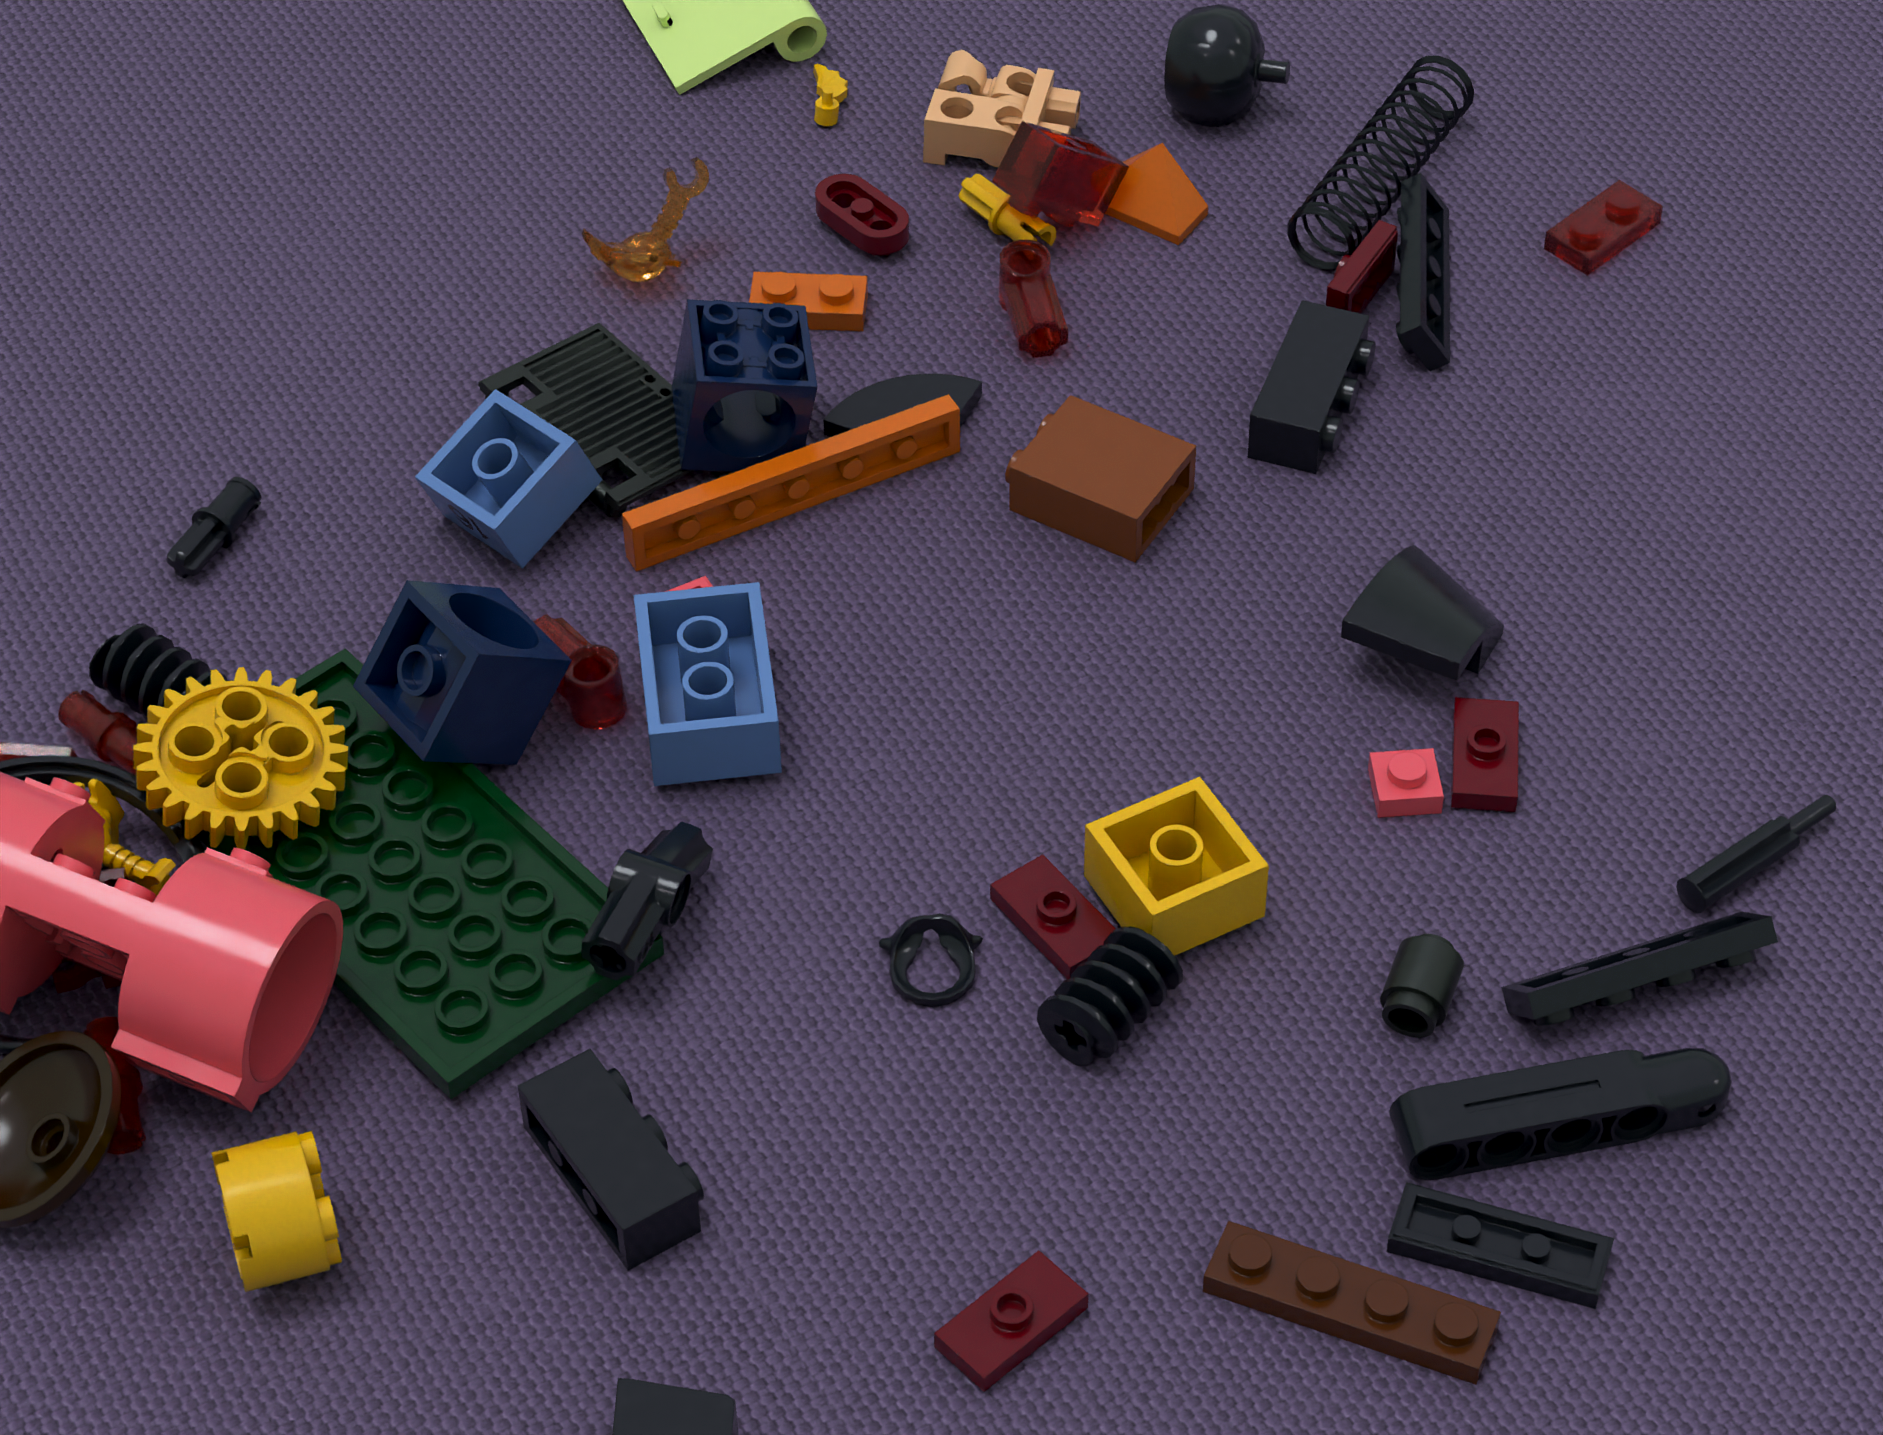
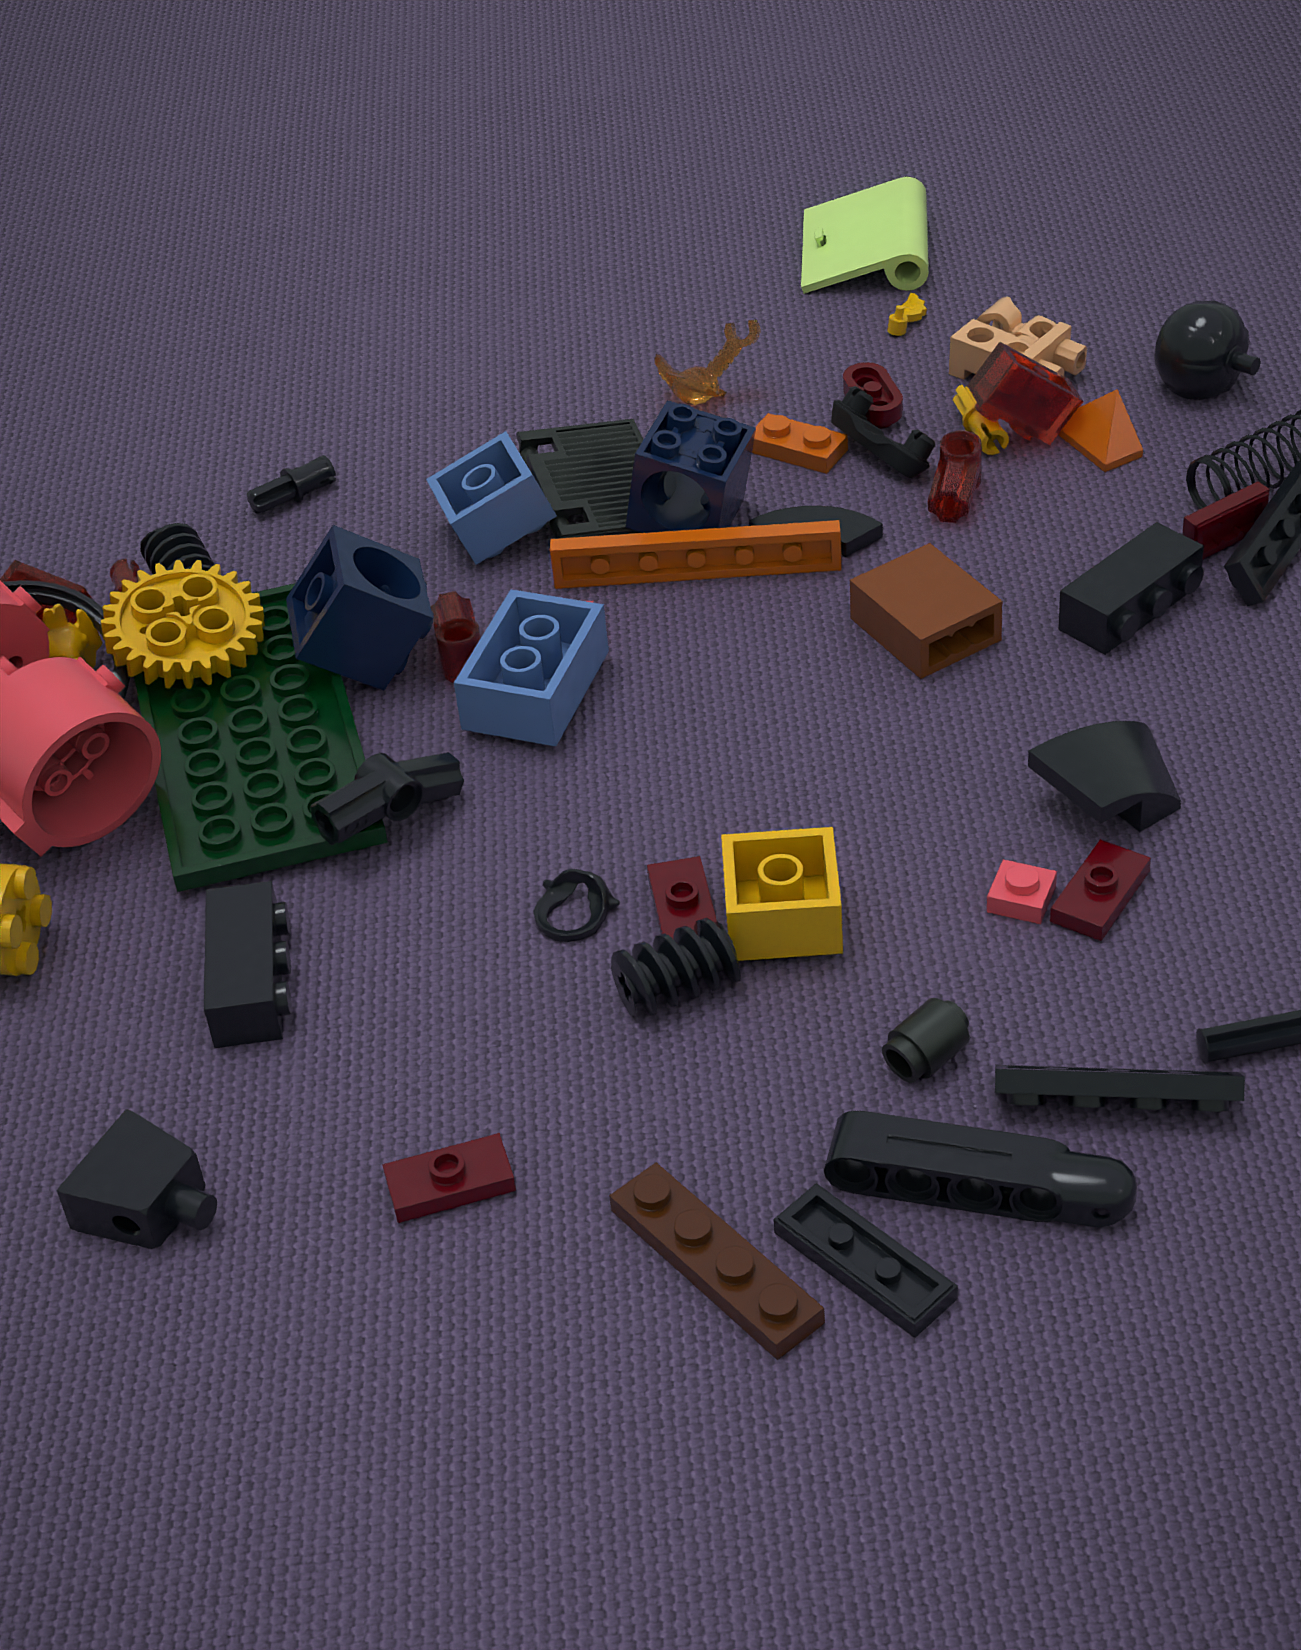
camera: 30 degrees right, 5 degrees down
(860, 253) = (851, 419): none -> black piece

